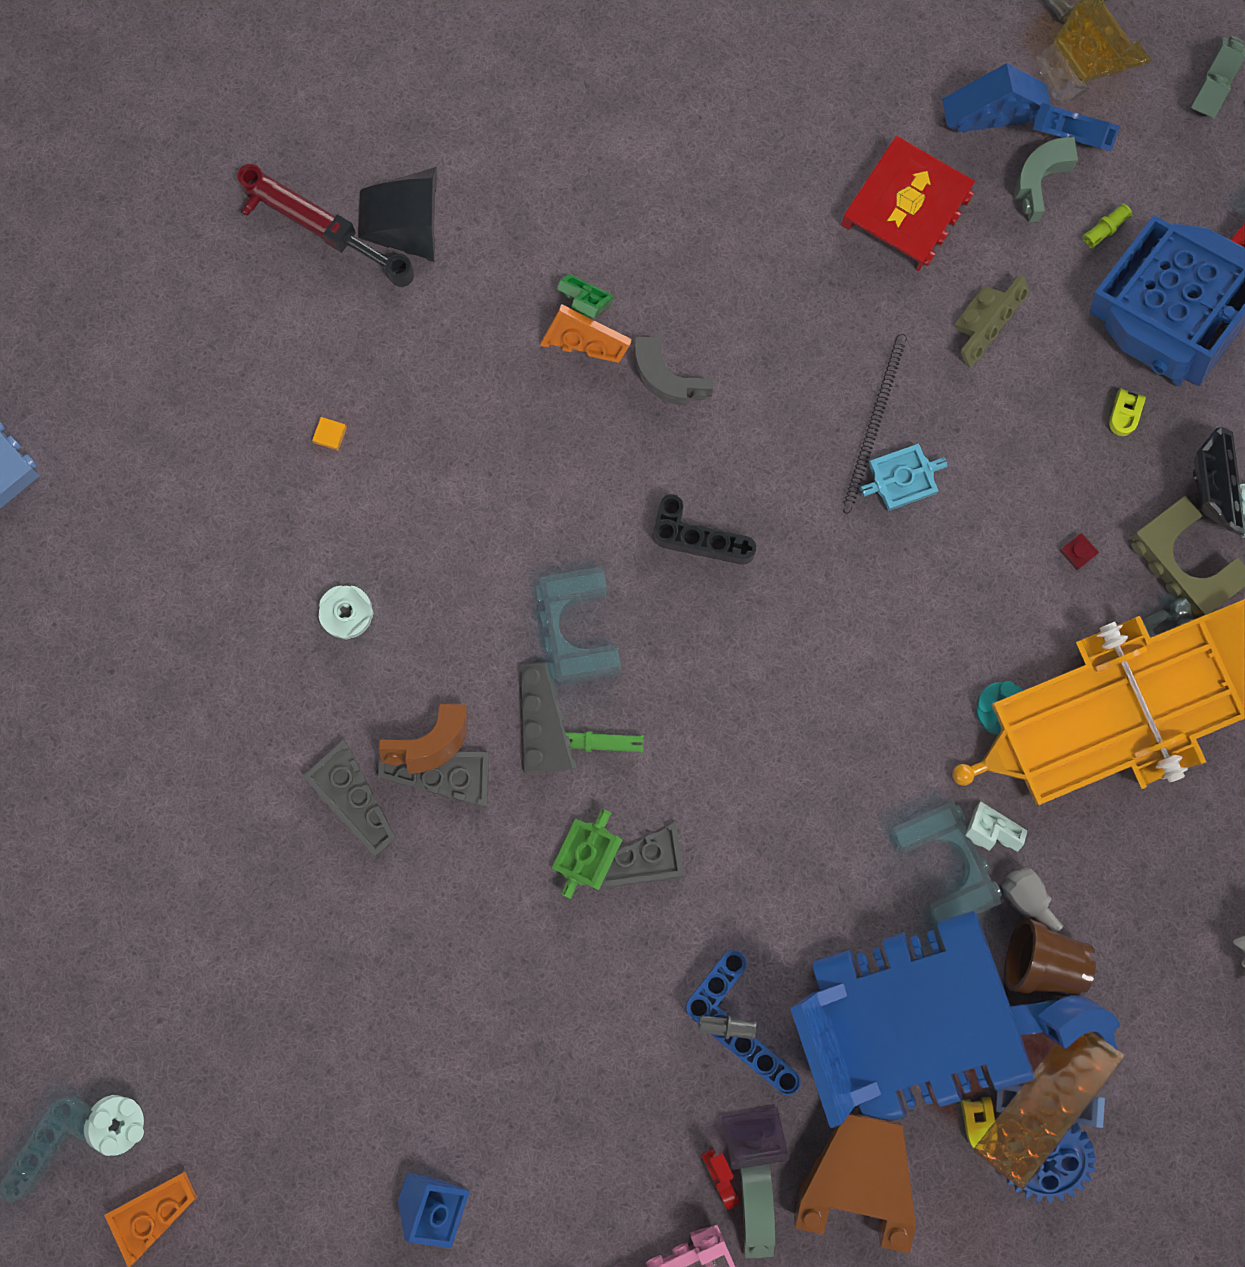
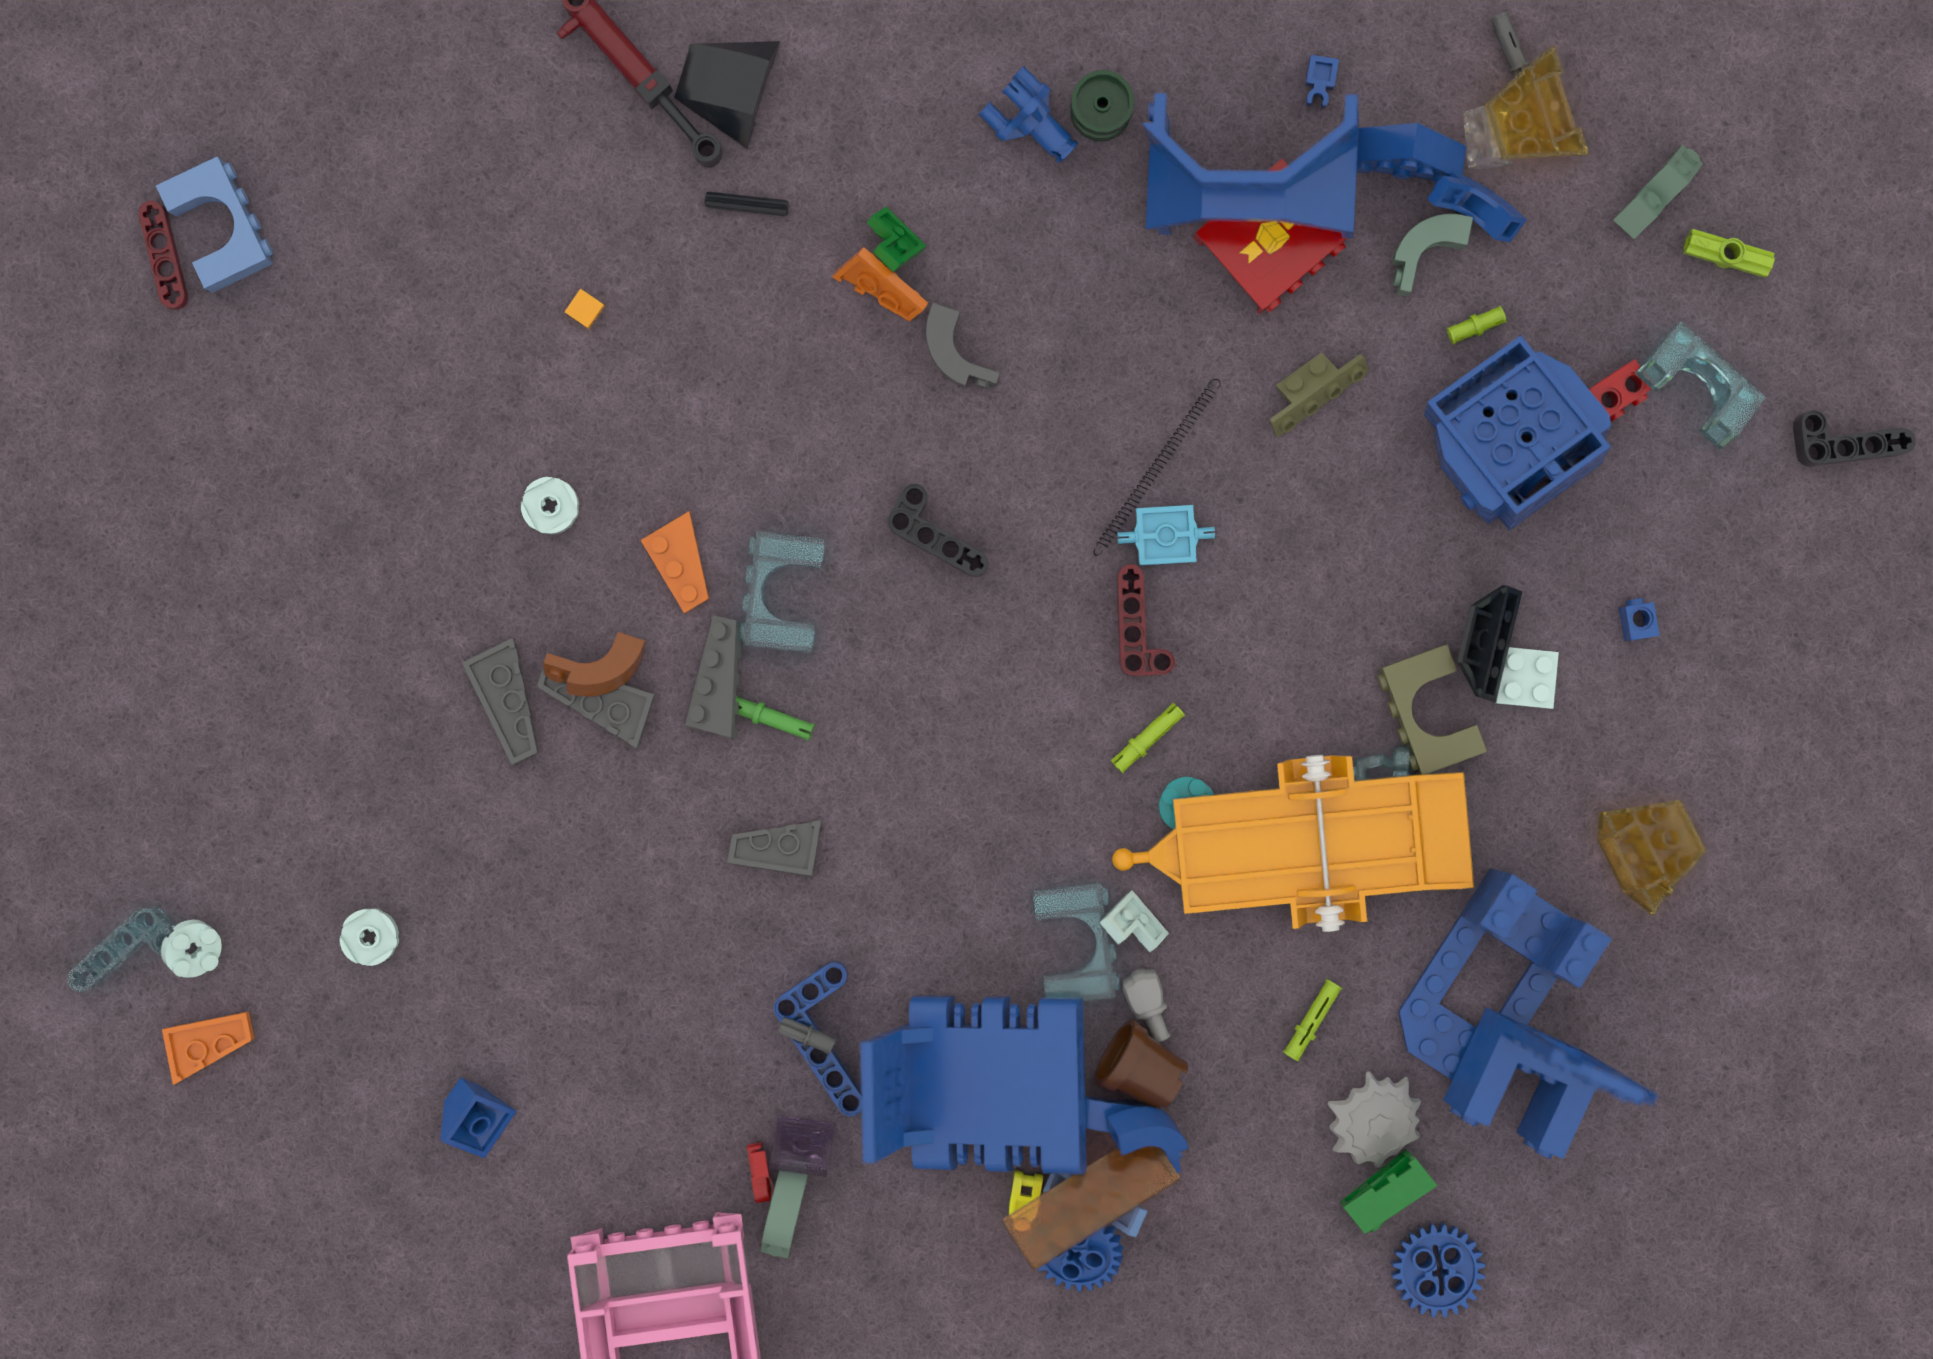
camera: 20 degrees right, 10 degrees up
(267, 1062) = (385, 941): none -> light aqua plate
(447, 305) = (746, 204): none -> black axle
(476, 628) = (678, 561): none -> orange wing
(587, 854) = (722, 826): bright green plate -> none
(672, 166) = (1032, 118): none -> blue wheel
(728, 137) = (1098, 122): none -> dark green wheel
(829, 169) = (1309, 192): none -> blue panel
(862, 1174) = (894, 1209): dark orange wedge -> none
(904, 65) = (1321, 76): none -> blue plate
(905, 558) = (1138, 621): none -> dark red beam
(942, 668) = (1153, 732): none -> lime pin
(1079, 551) = (1321, 667): dark red plate -> none
(1124, 420) = (1416, 543): neon yellow plate -> none
(1186, 872) = (1312, 1020): none -> lime pin

